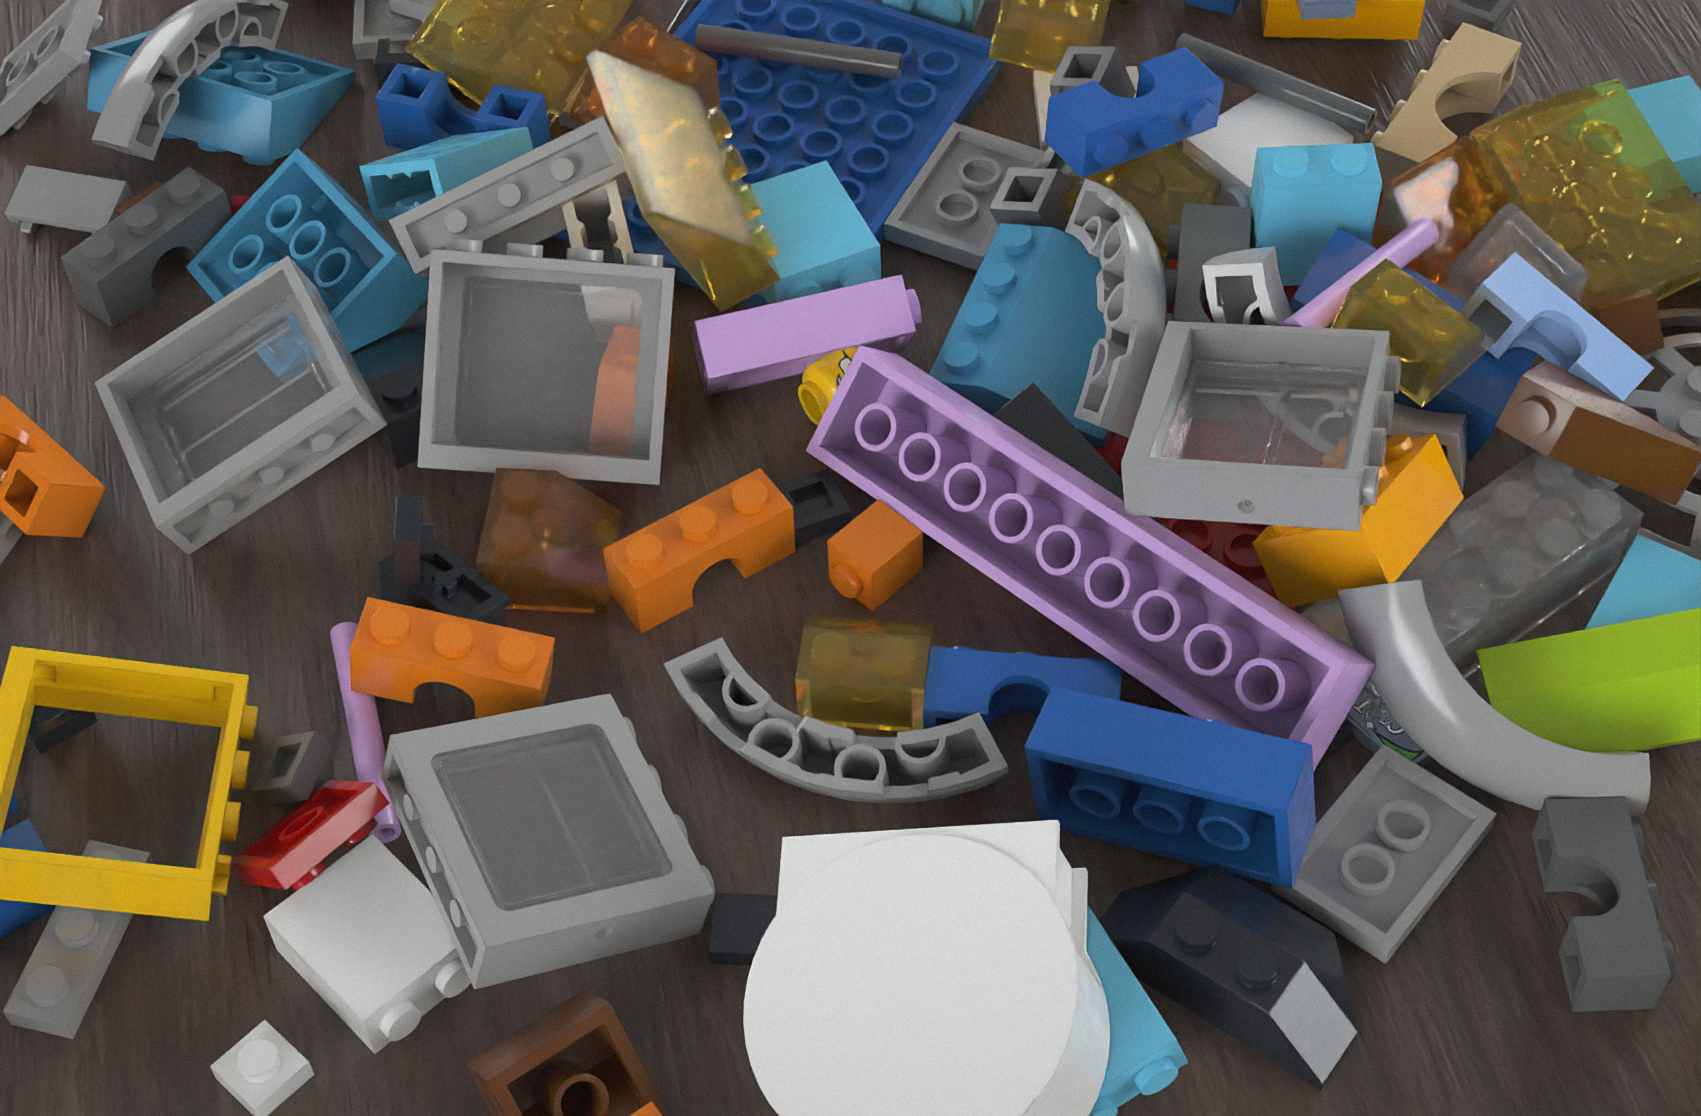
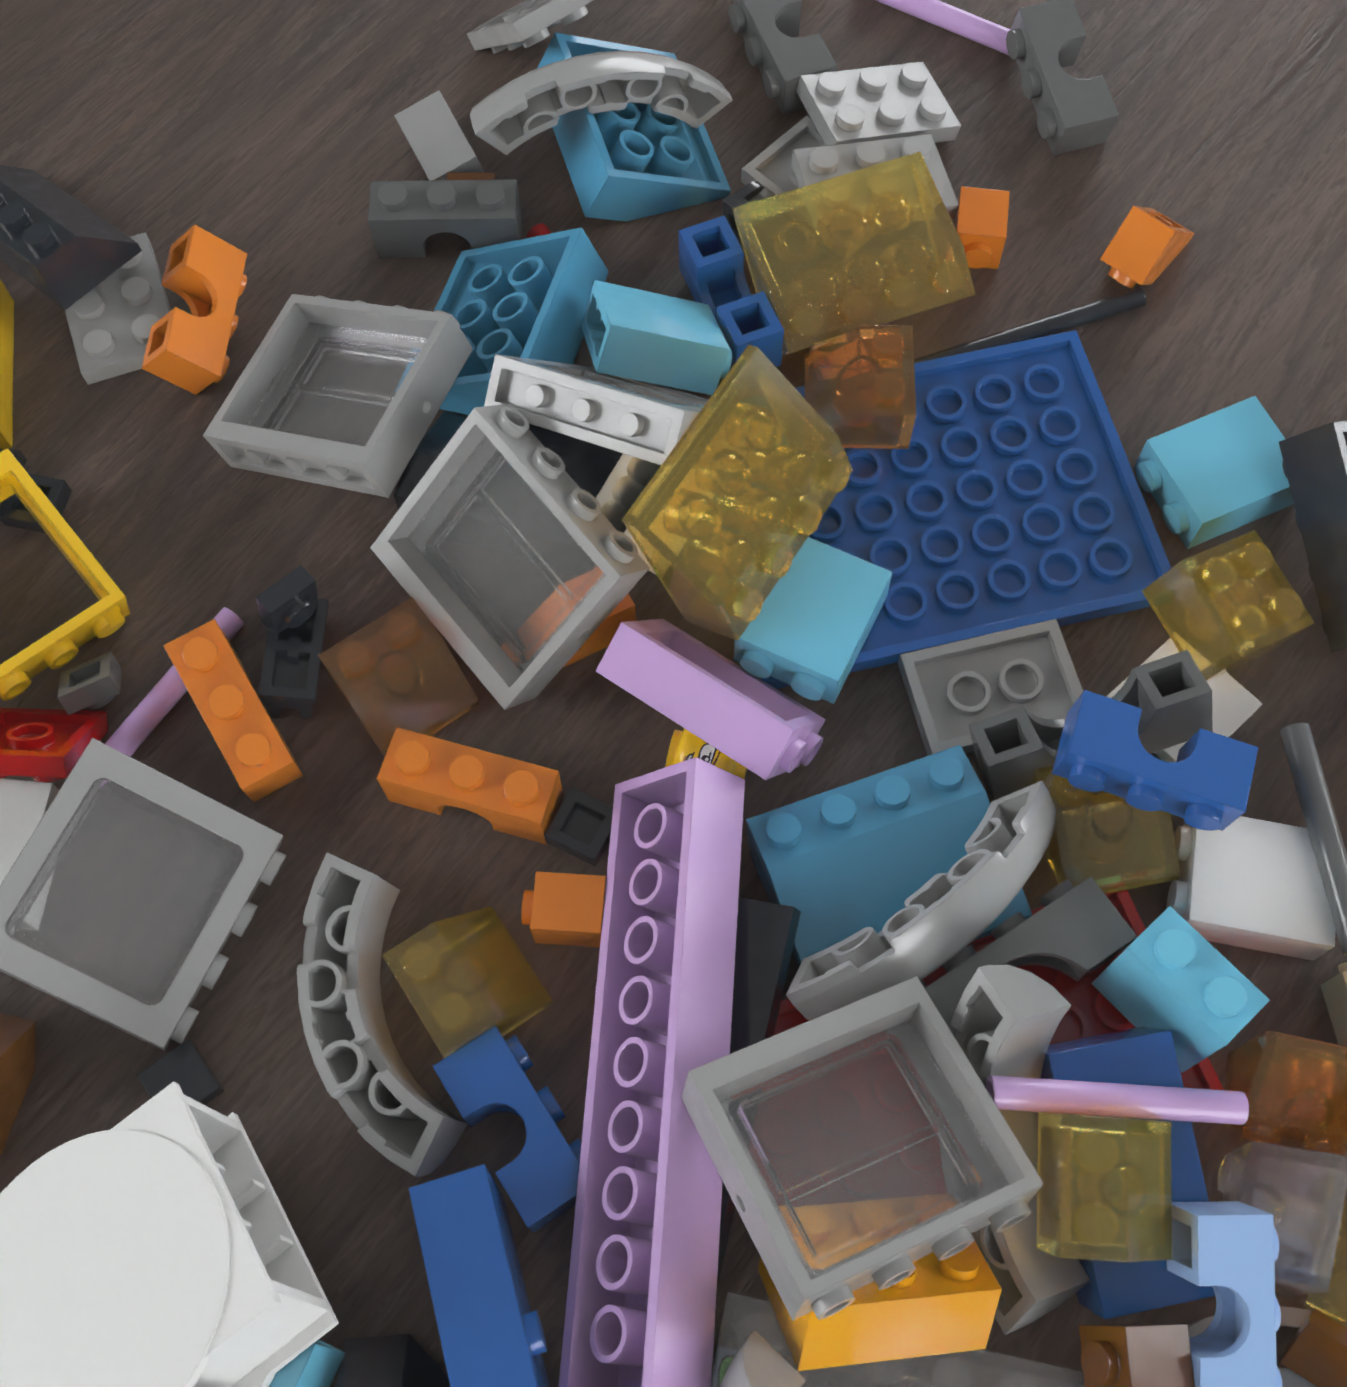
camera: 50 degrees right, 15 degrees up
(799, 51) = (1015, 455): dark grey piece -> none

